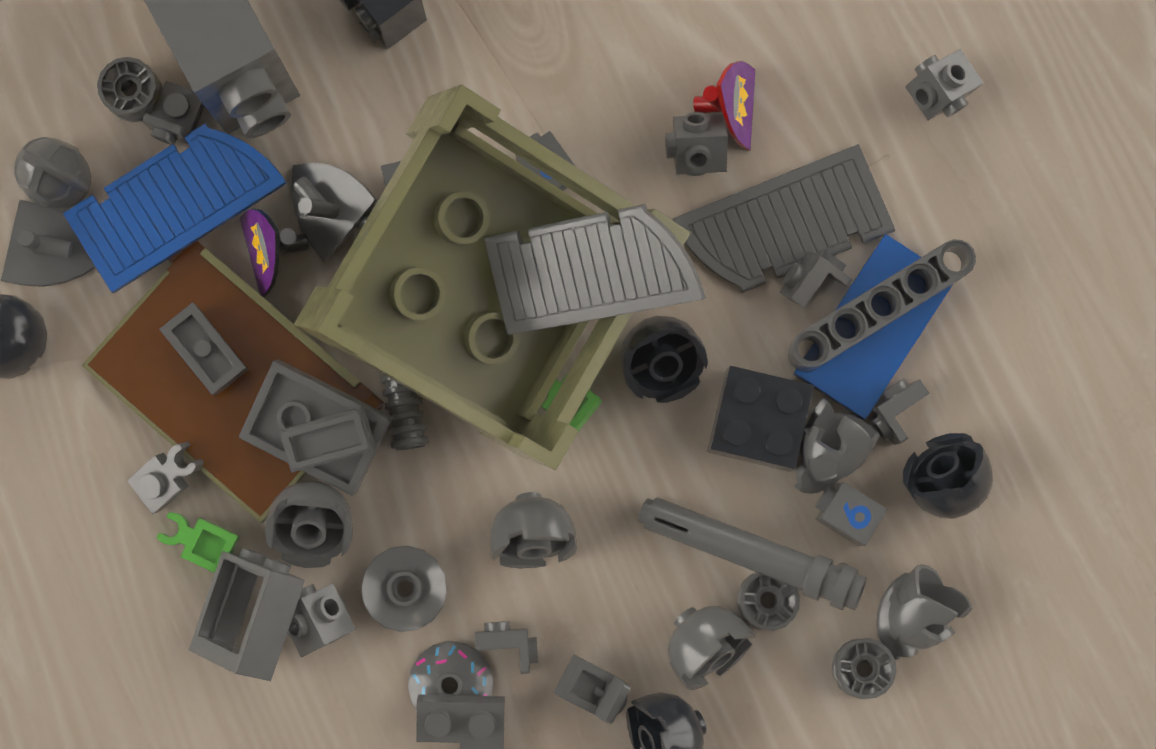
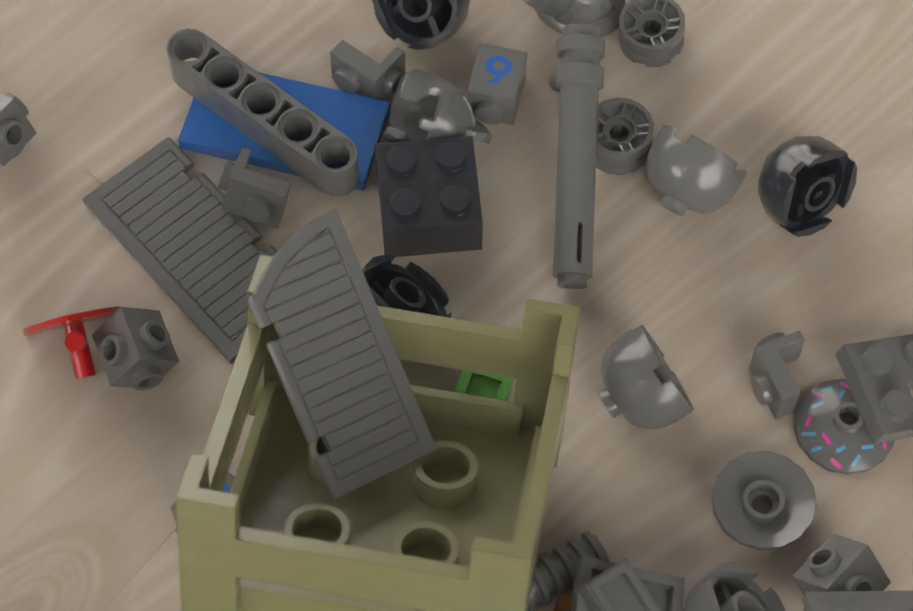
camera: 105 degrees left, 20 degrees down
(593, 689) = (787, 268): dark grey bracket -> none

